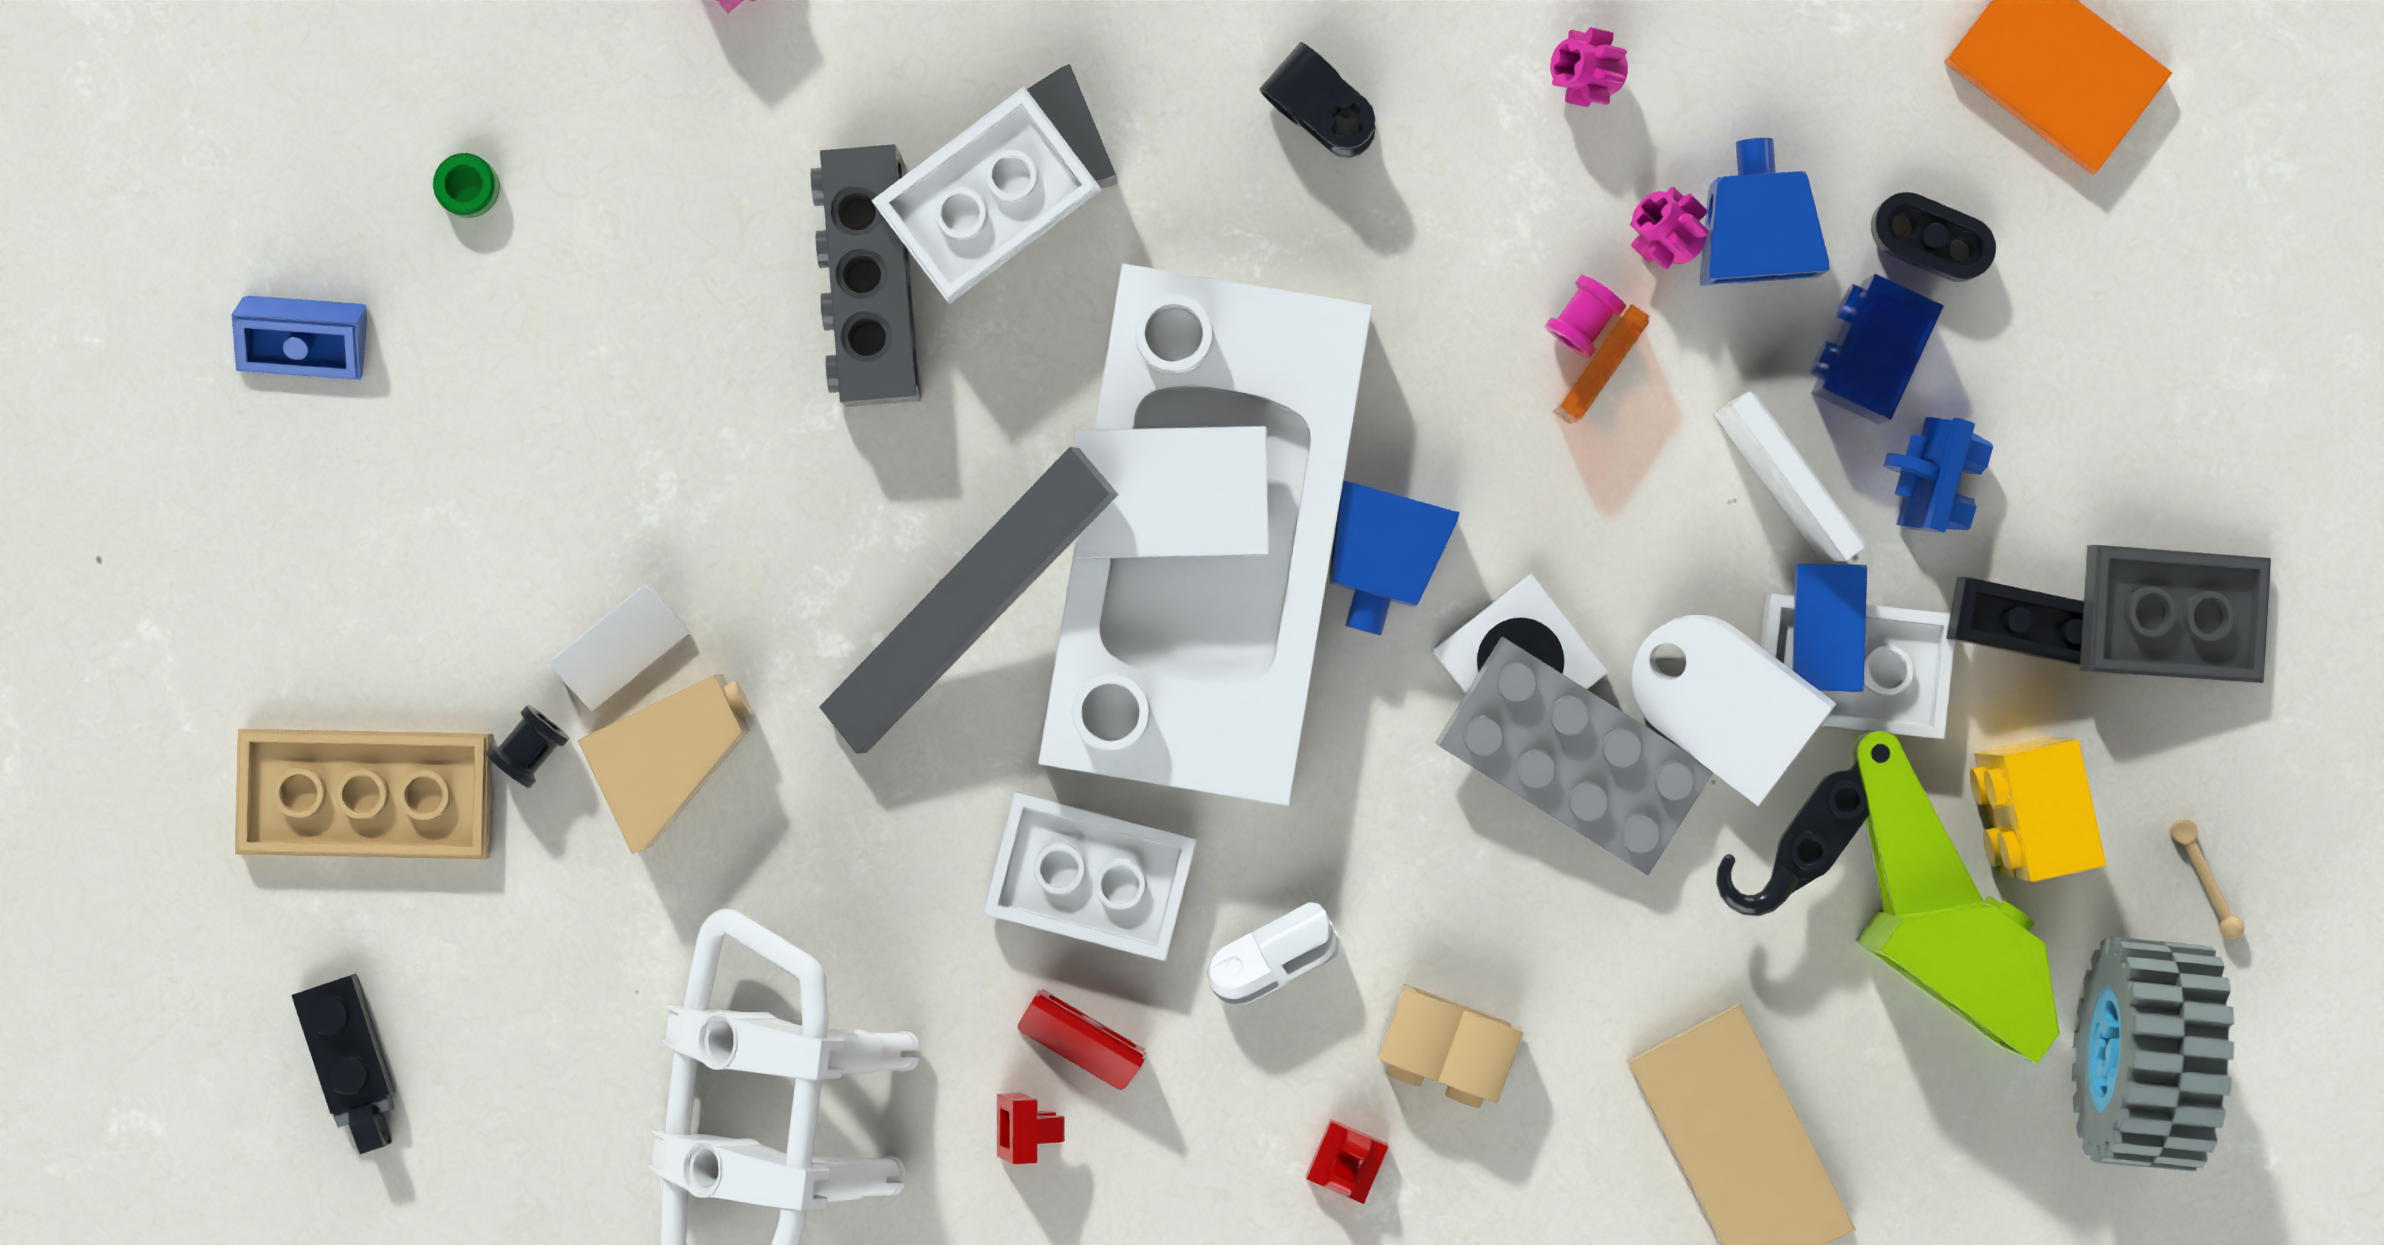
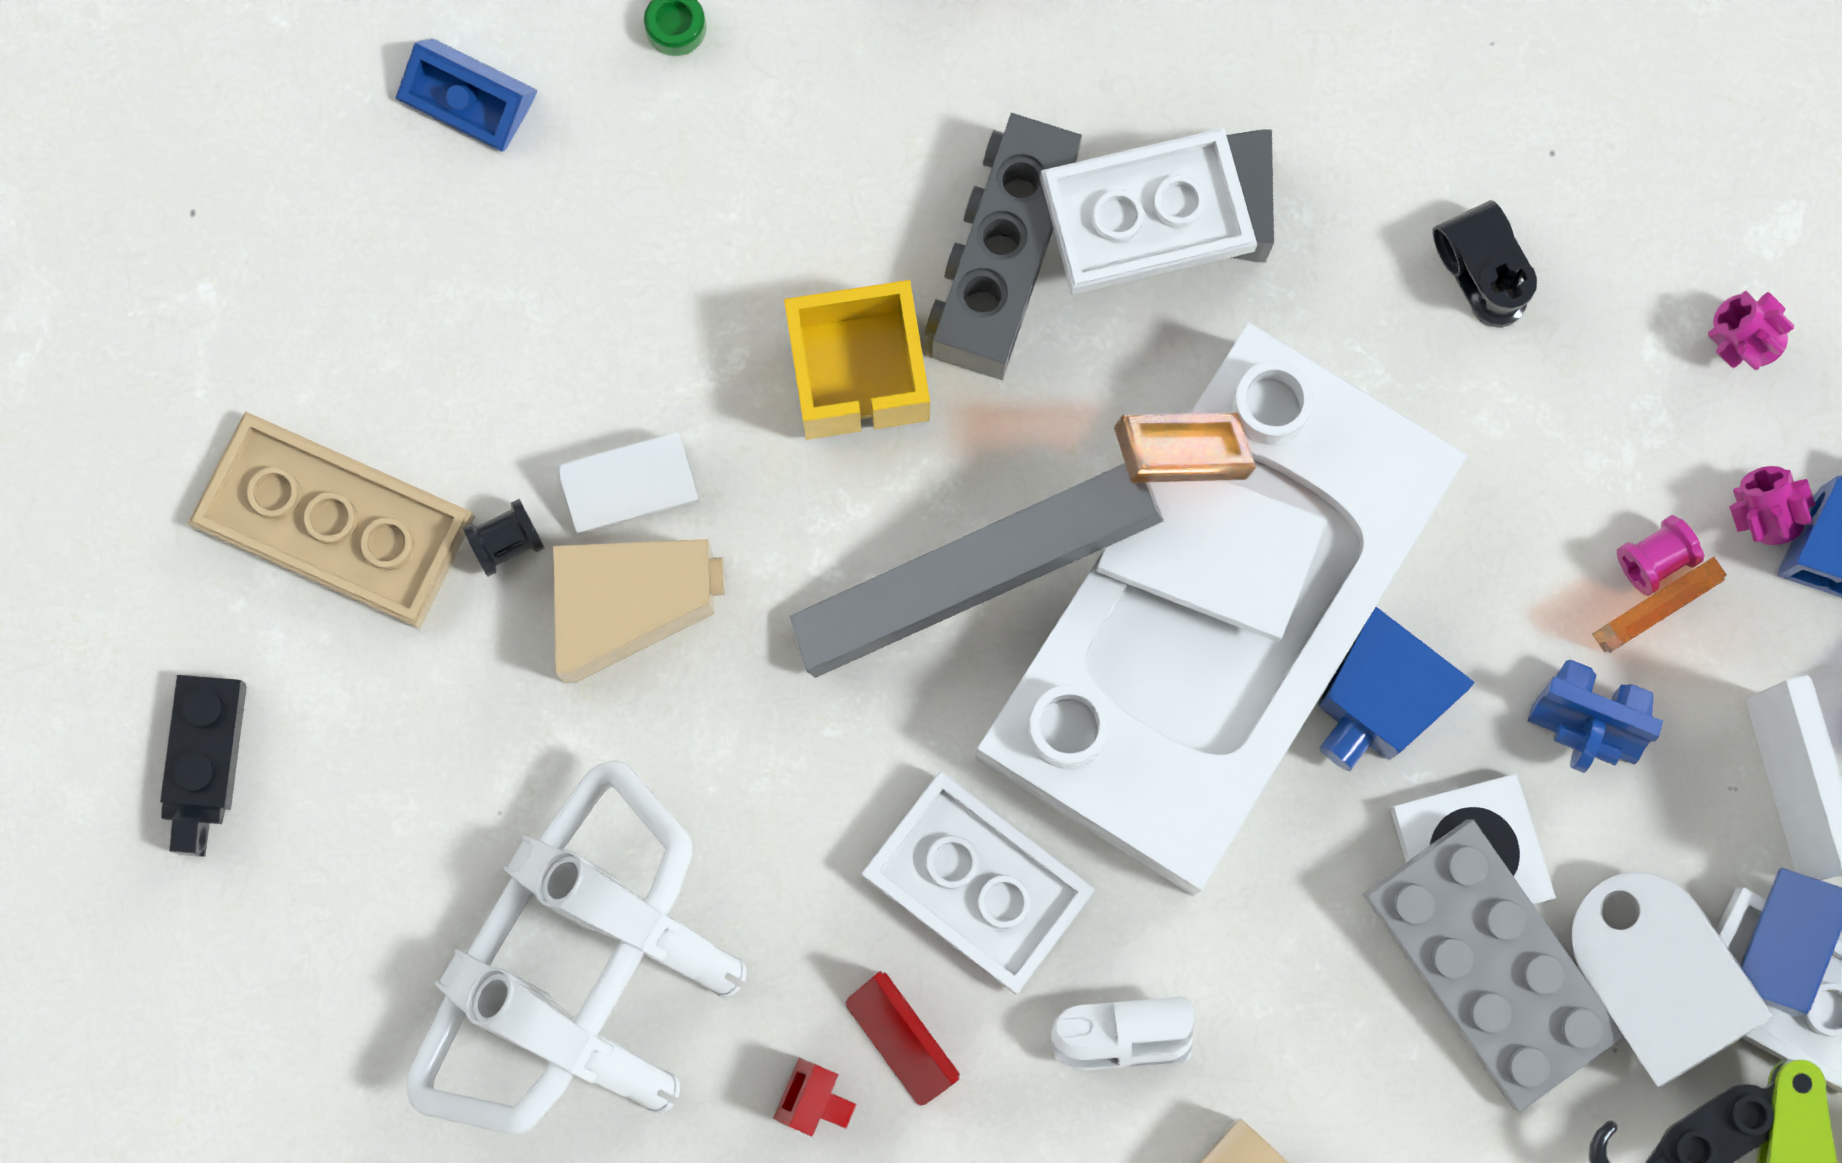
camera: 20 degrees right, 10 degrees down
(777, 447) = (858, 359): none -> yellow piece
(1109, 417) = (1184, 447): none -> clear orange tile
(1582, 502) = (1593, 722): none -> blue hips

